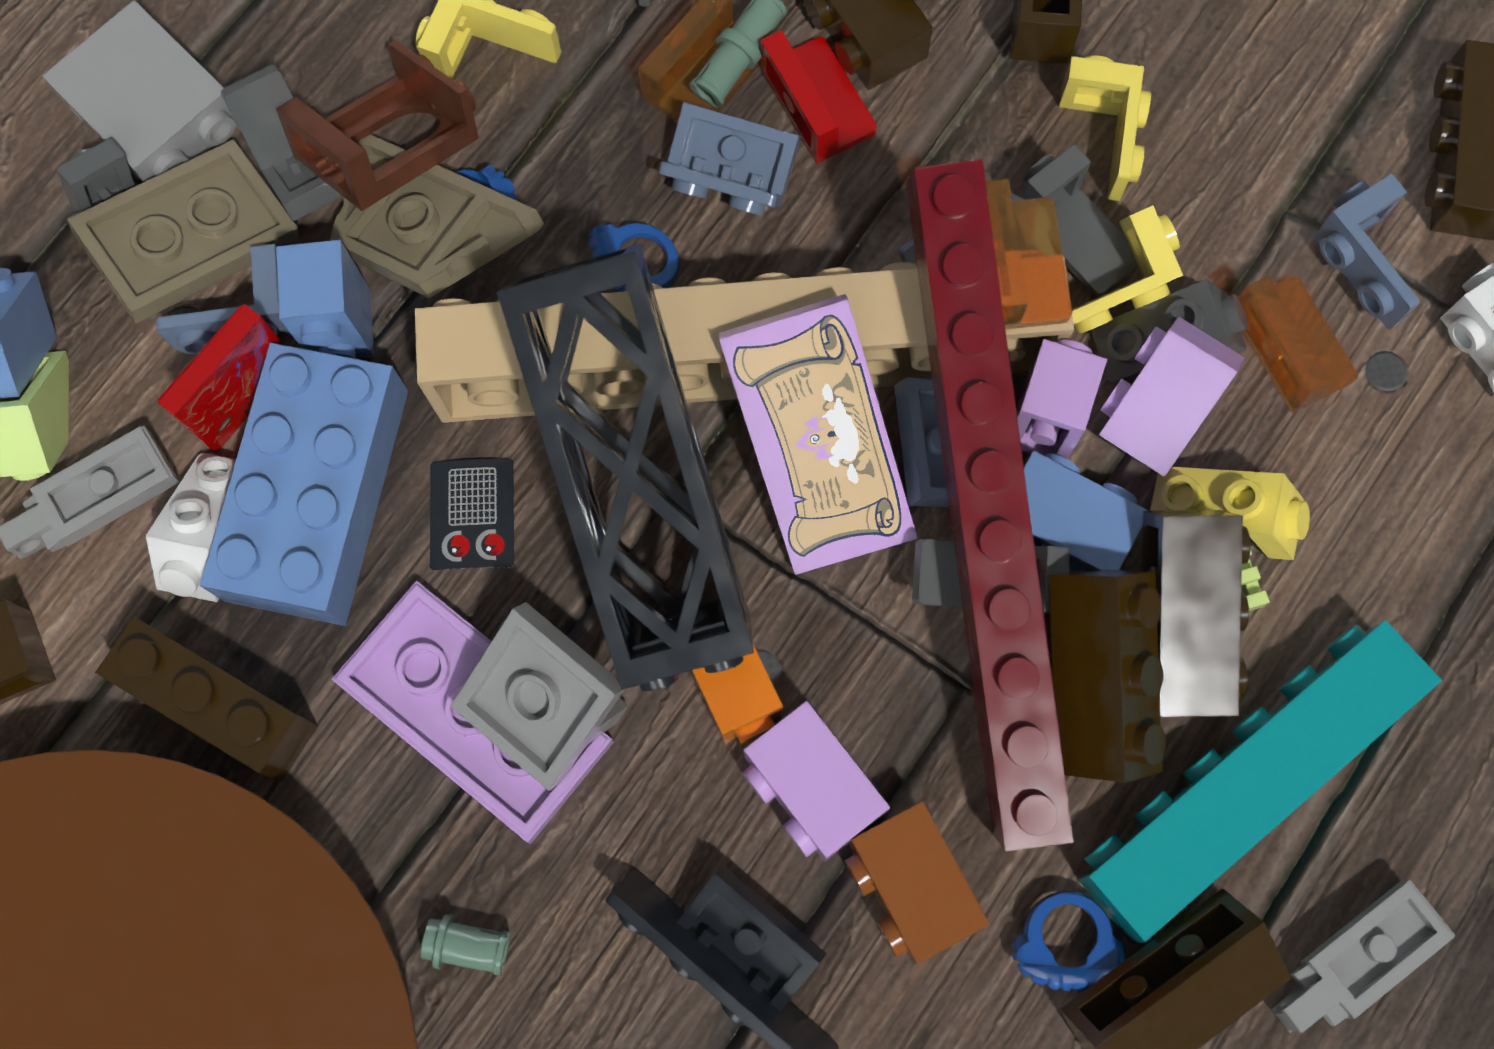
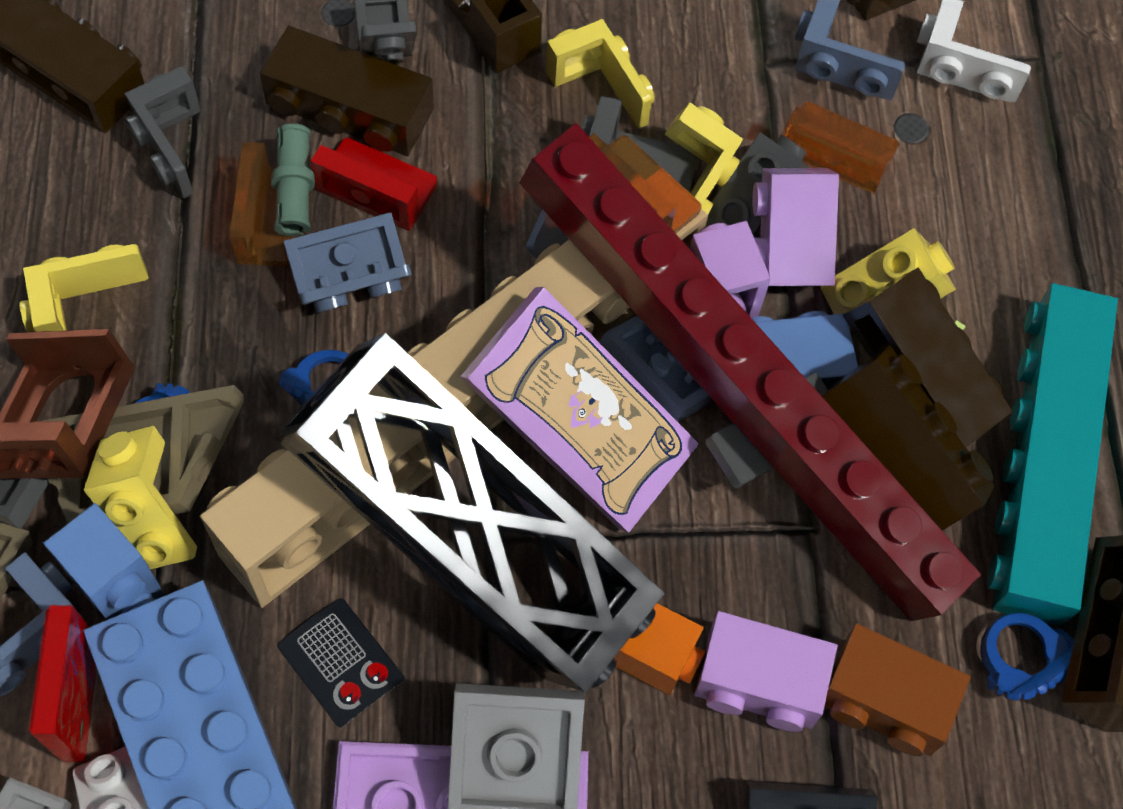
camera: 45 degrees left, 10 degrees down
(378, 243) = (125, 491): none -> light yellow bracket

